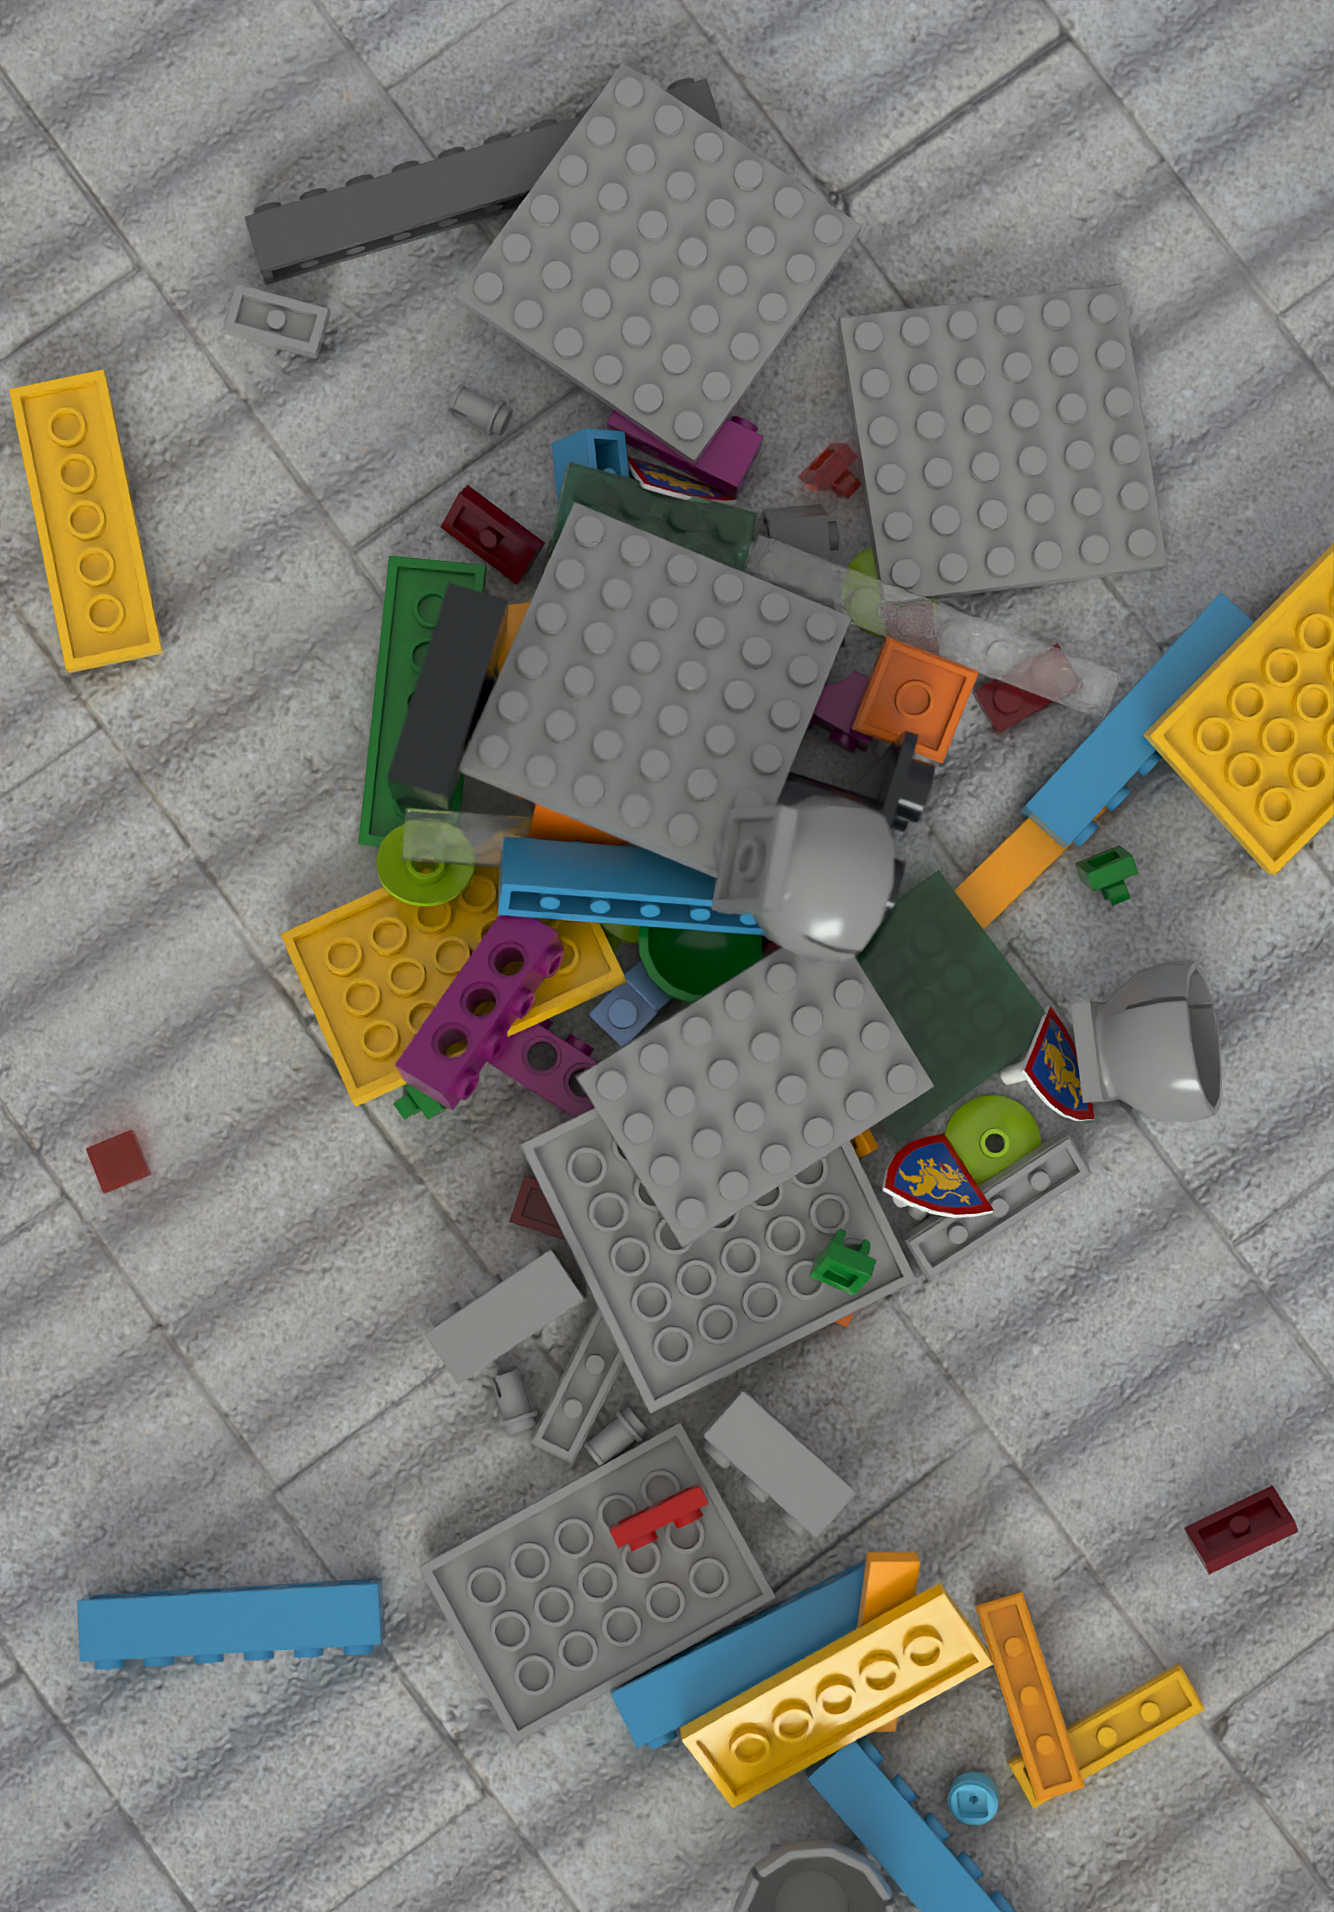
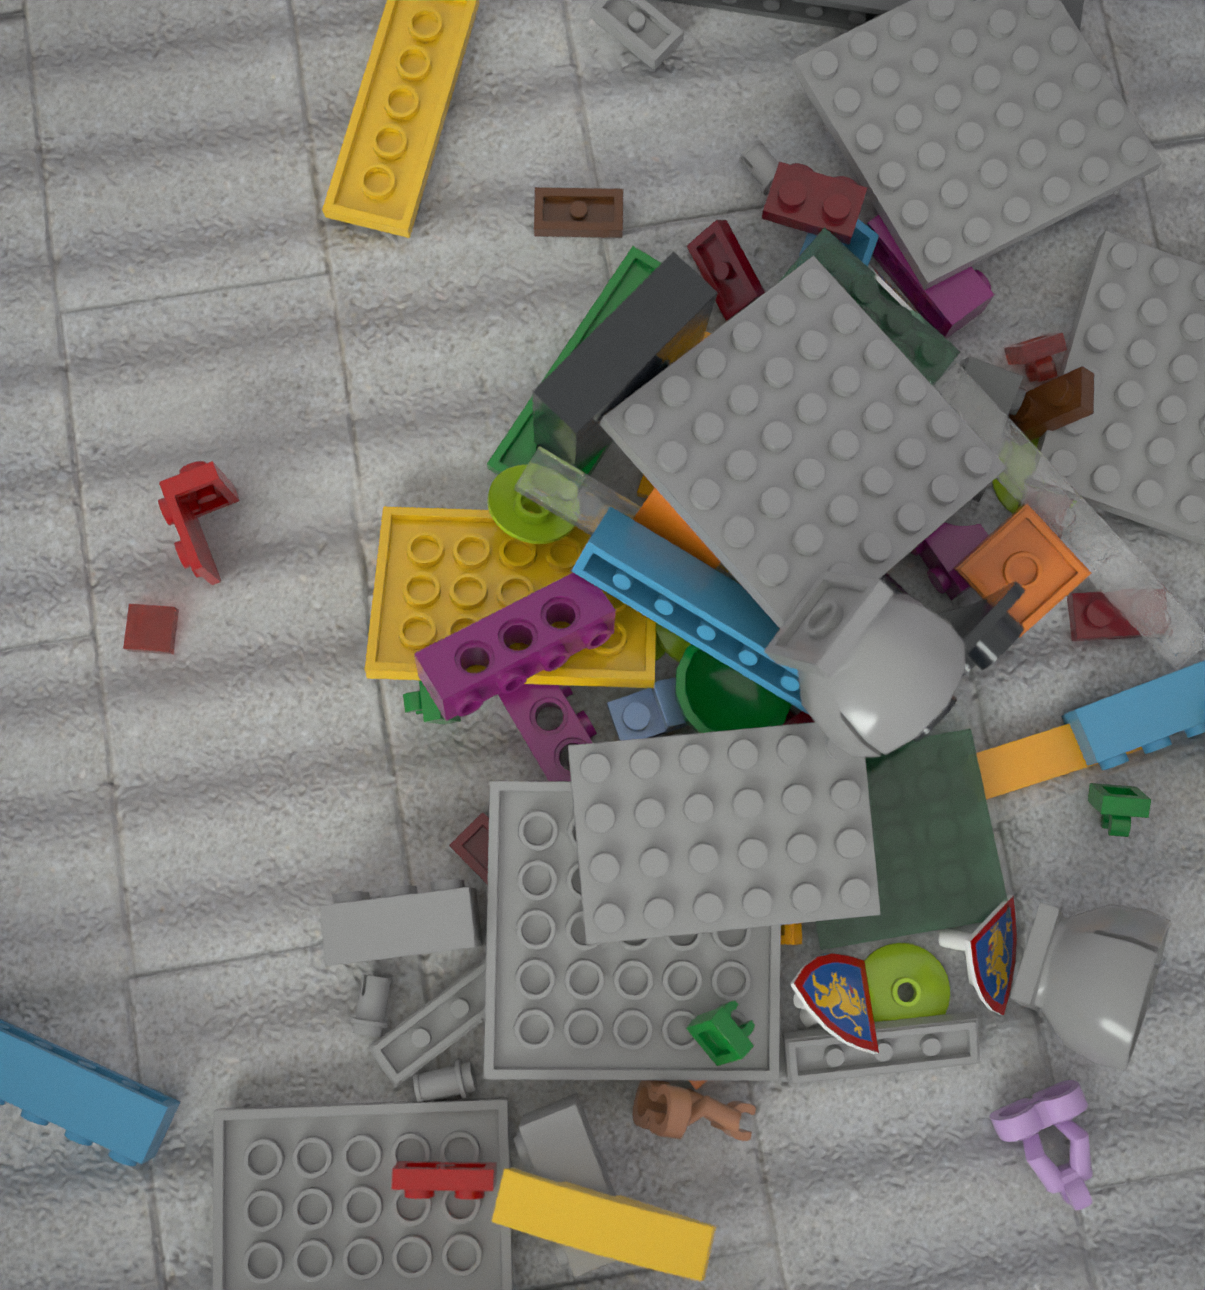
camera: 30 degrees right, 5 degrees down
(98, 1010) = (189, 495): none -> red bracket
(318, 546) = (578, 212): none -> reddish brown plate
(547, 436) = (814, 201): none -> dark red bracket
(818, 1477) = (604, 1224): none -> yellow slope
(832, 1353) = (671, 1109): none -> nougat piece
(870, 521) = (1056, 403): none -> reddish brown plate
(1178, 1179) = (1051, 1107): none -> lavender piece

